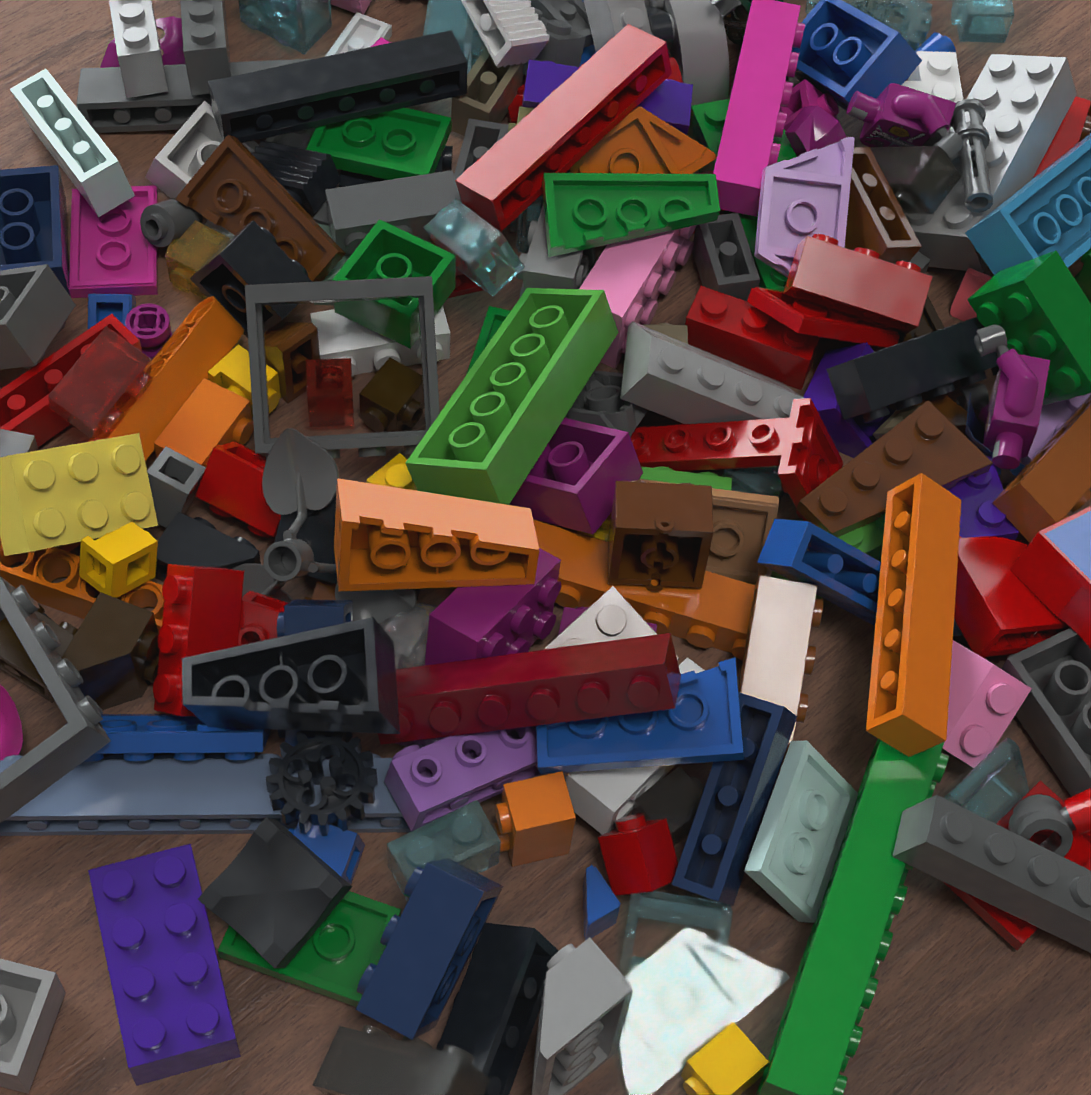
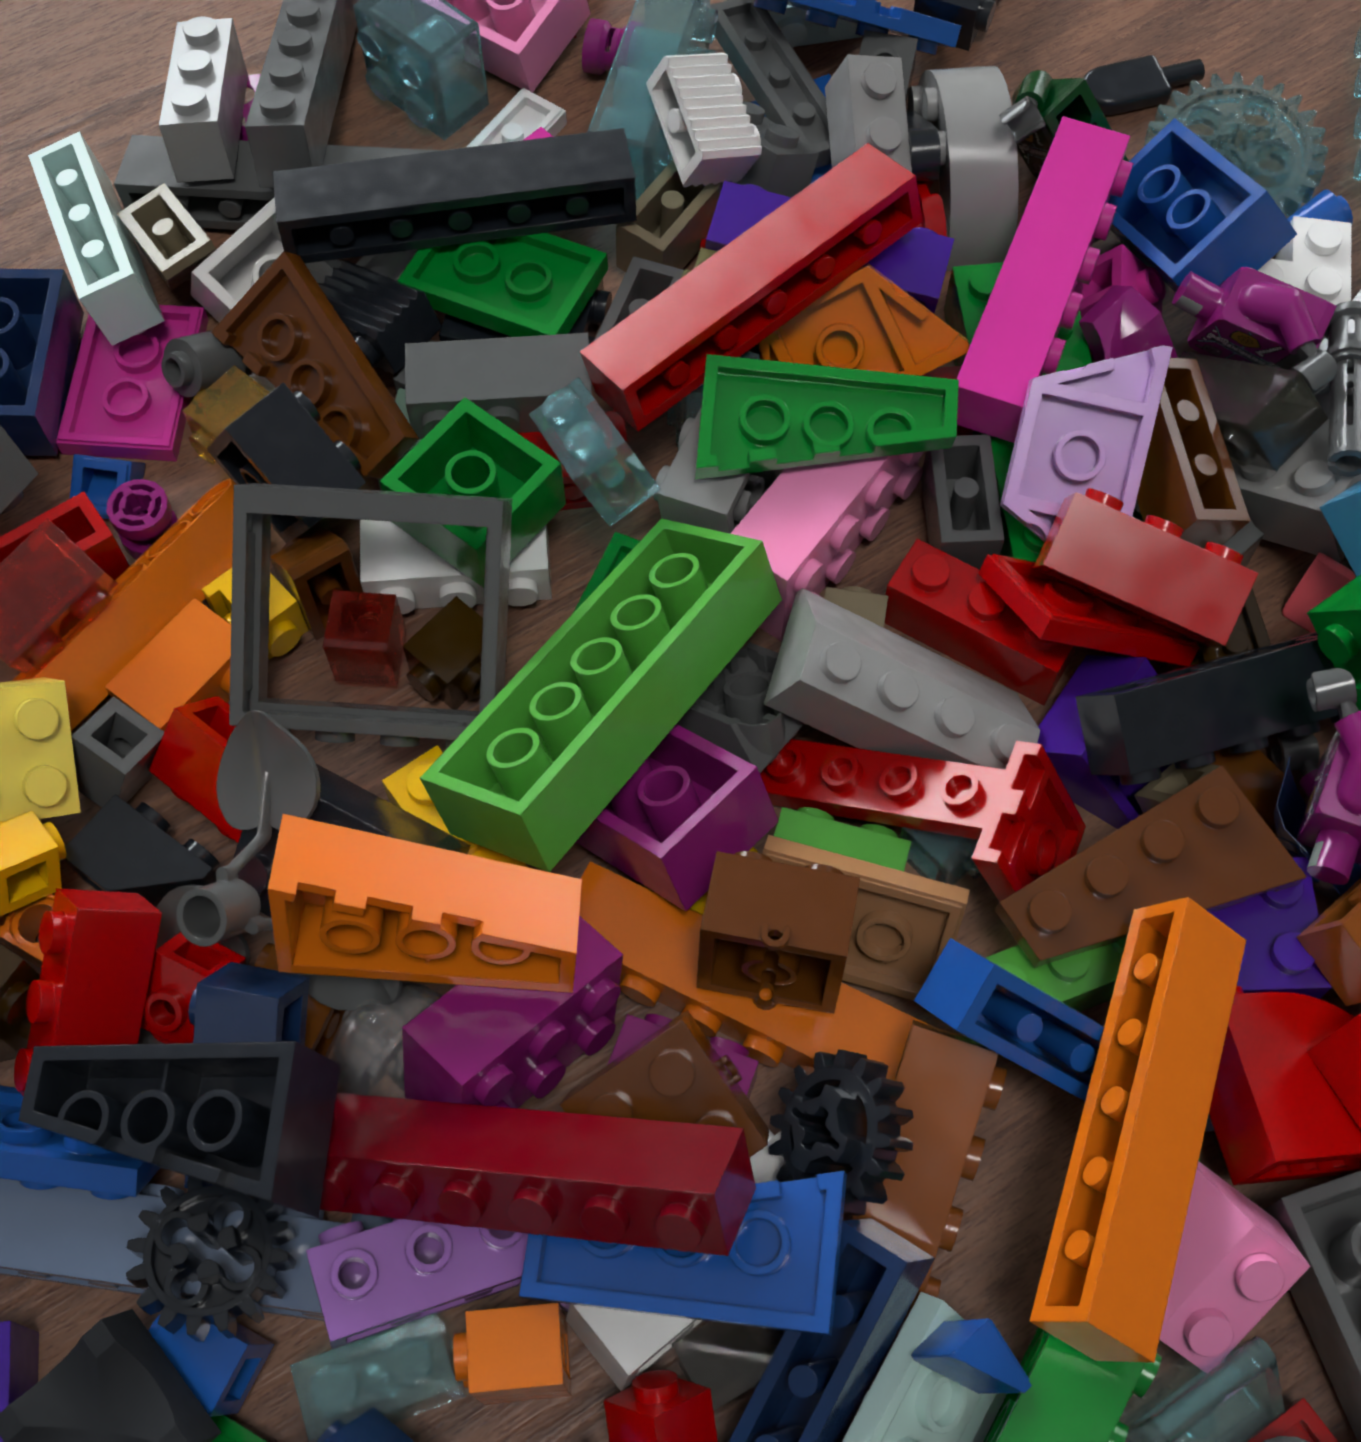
camera: 15 degrees right, 5 degrees up
(128, 135) = (167, 235): none -> dark tan slope
(728, 624) = (843, 1121): none -> black gear
(833, 768) = (973, 1356): none -> blue slope

